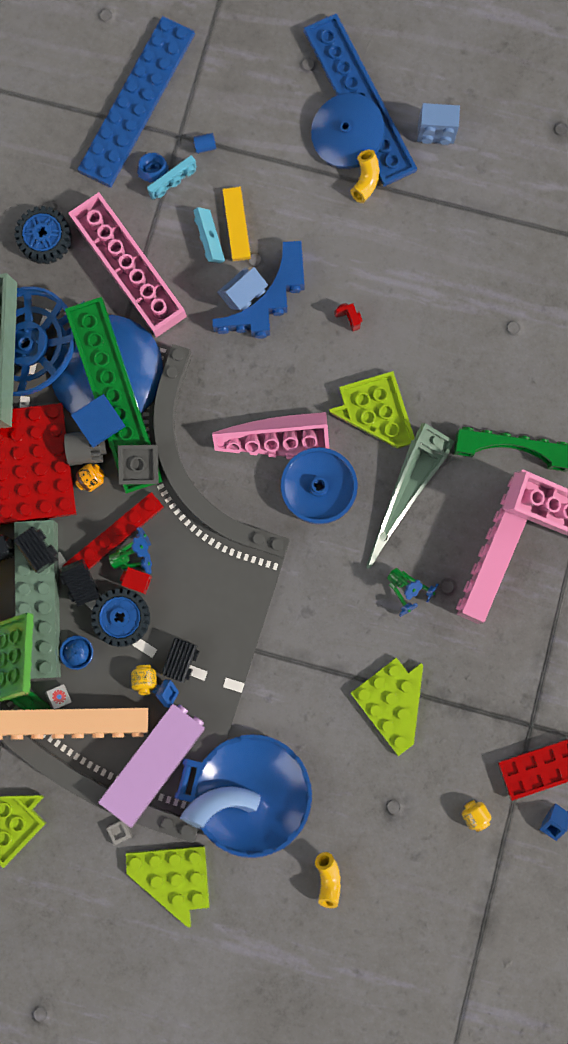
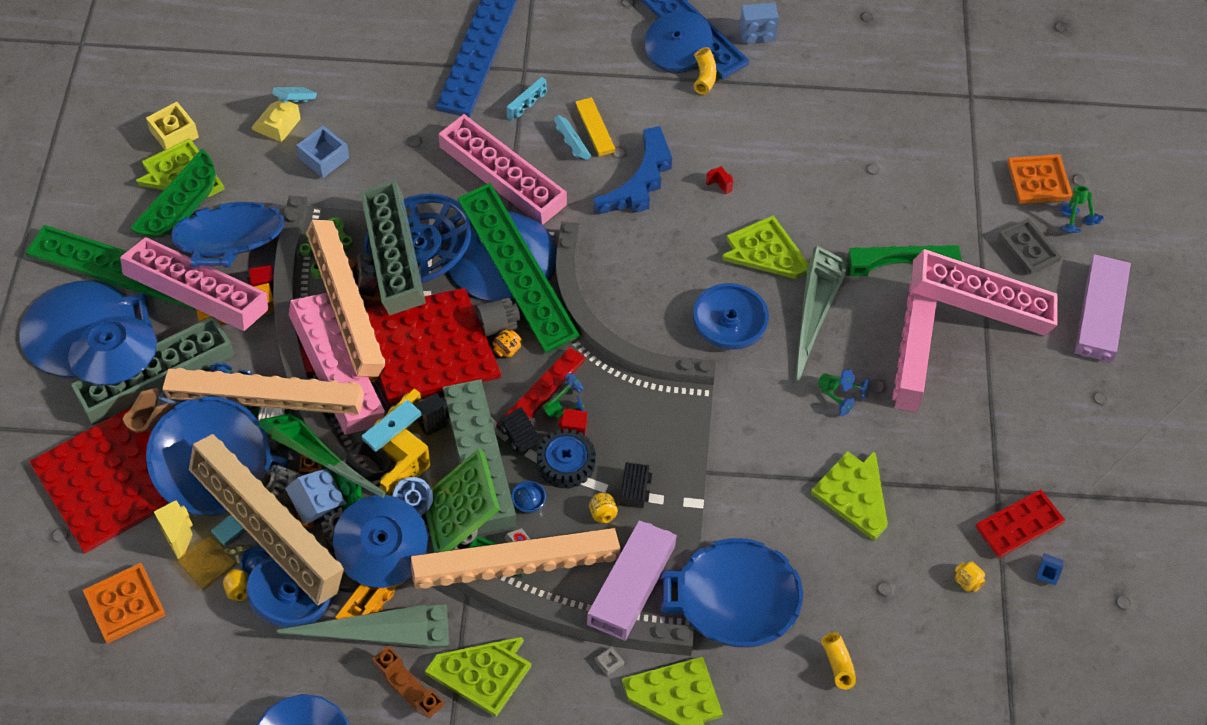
camera: 15 degrees left, 25 degrees down
(36, 550) = (472, 400): black brick -> none
(49, 246) = (415, 160): wheel -> none
(98, 420) = (508, 285): blue tile -> none
(138, 464) = (554, 319): dark grey plate -> none
(147, 162) = (505, 93): blue hat -> none
(166, 693) = (629, 514): blue tile -> none
(204, 143) = (550, 69): blue piece -> none
(214, 800) = (711, 598): light blue brick -> none
(243, 288) = (616, 169): medium blue piece -> none
(275, 436) = (677, 284): bright pink wedge -> none

